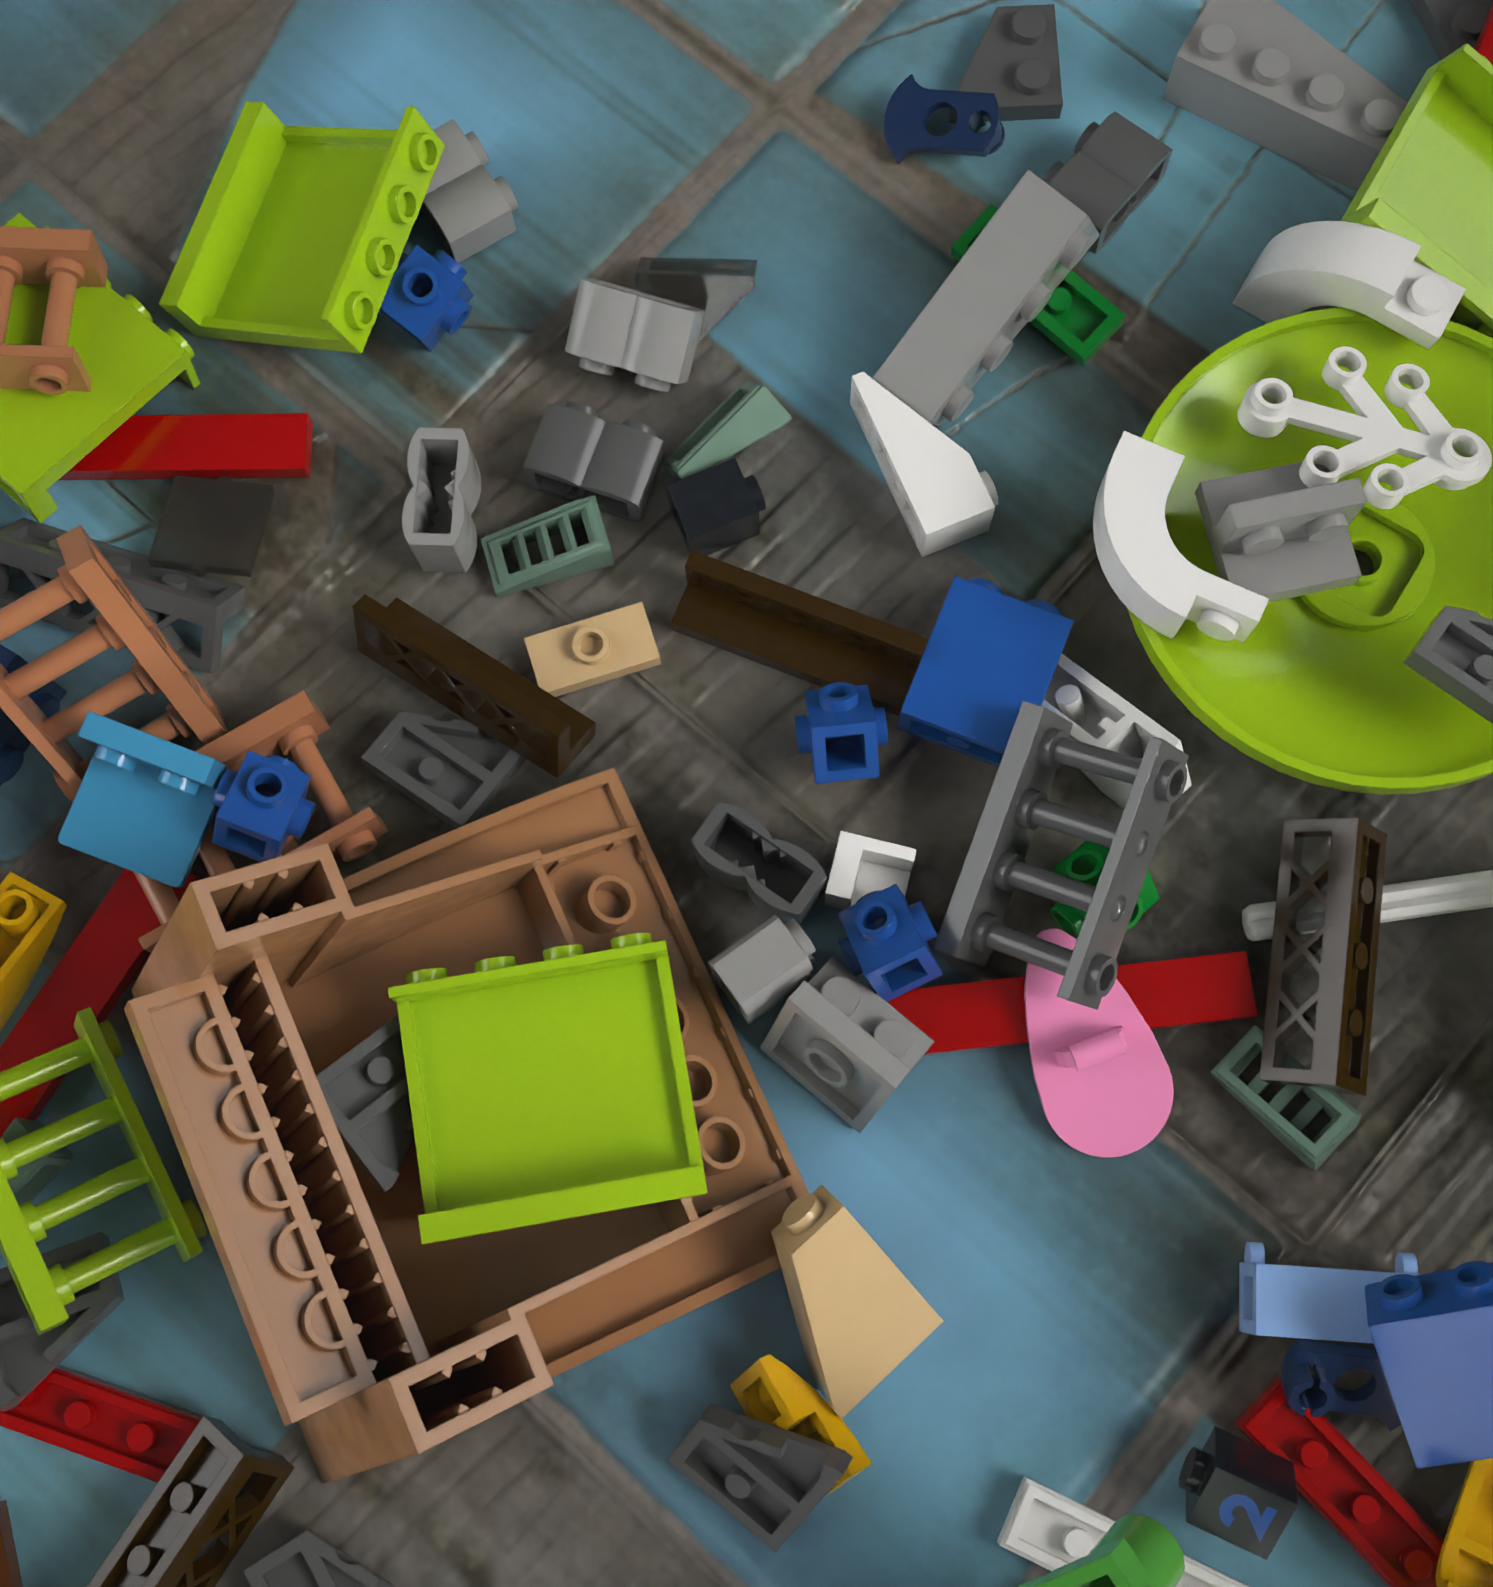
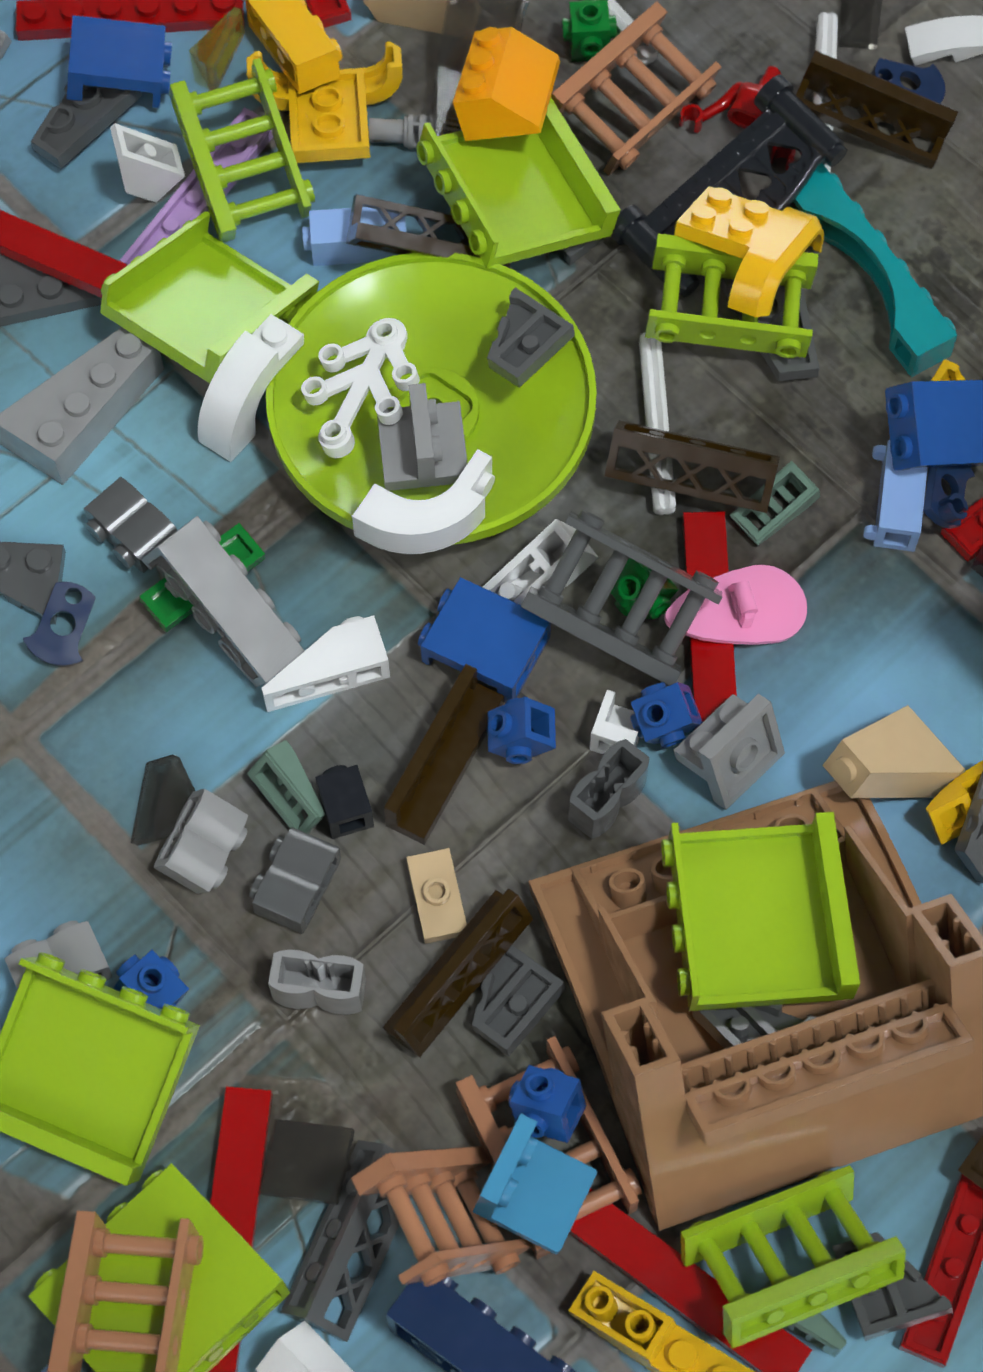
camera: 90 degrees left, 10 degrees down
(573, 562) = (349, 883): sand green slope -> none
(764, 967) = (681, 788): light grey brick -> none

